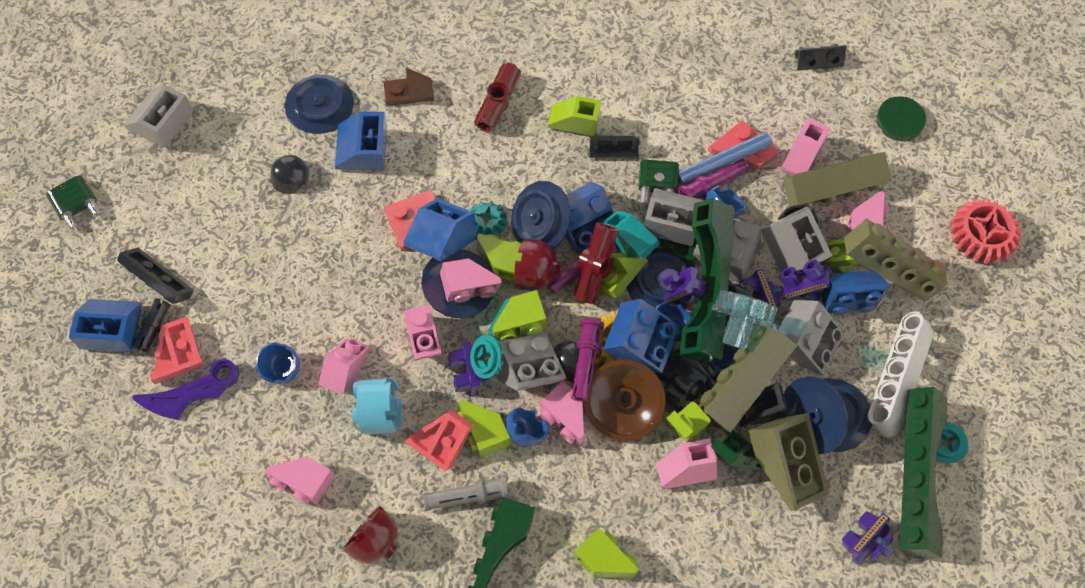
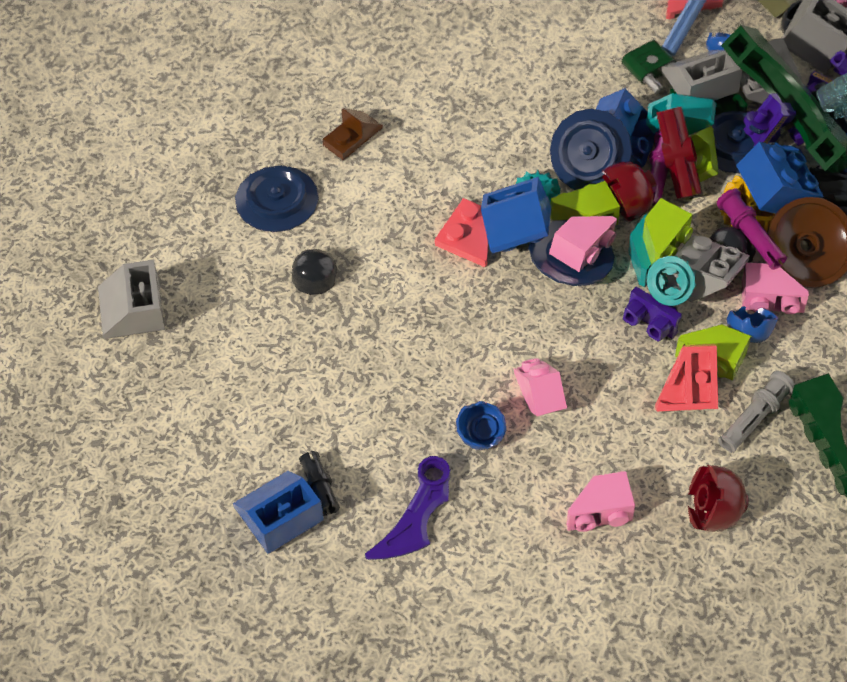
camera: 35 degrees left, 10 degrees down
(71, 199) = (117, 432): dark green piece -> none
(155, 275) = (278, 439): black plate -> none
(176, 351) = (368, 486): coral wing -> none
(362, 142) = (360, 197): blue slope -> none
(377, 406) = (611, 393): medium azure brick -> none
(422, 332) = (584, 311): bright pink slope -> none
(494, 107) = (444, 86): dark red piece -> none
(576, 115) = (532, 55): lime slope -> none
(614, 146) = (586, 61): black hinge -> none
(704, 184) = (696, 42): magenta pin -> none

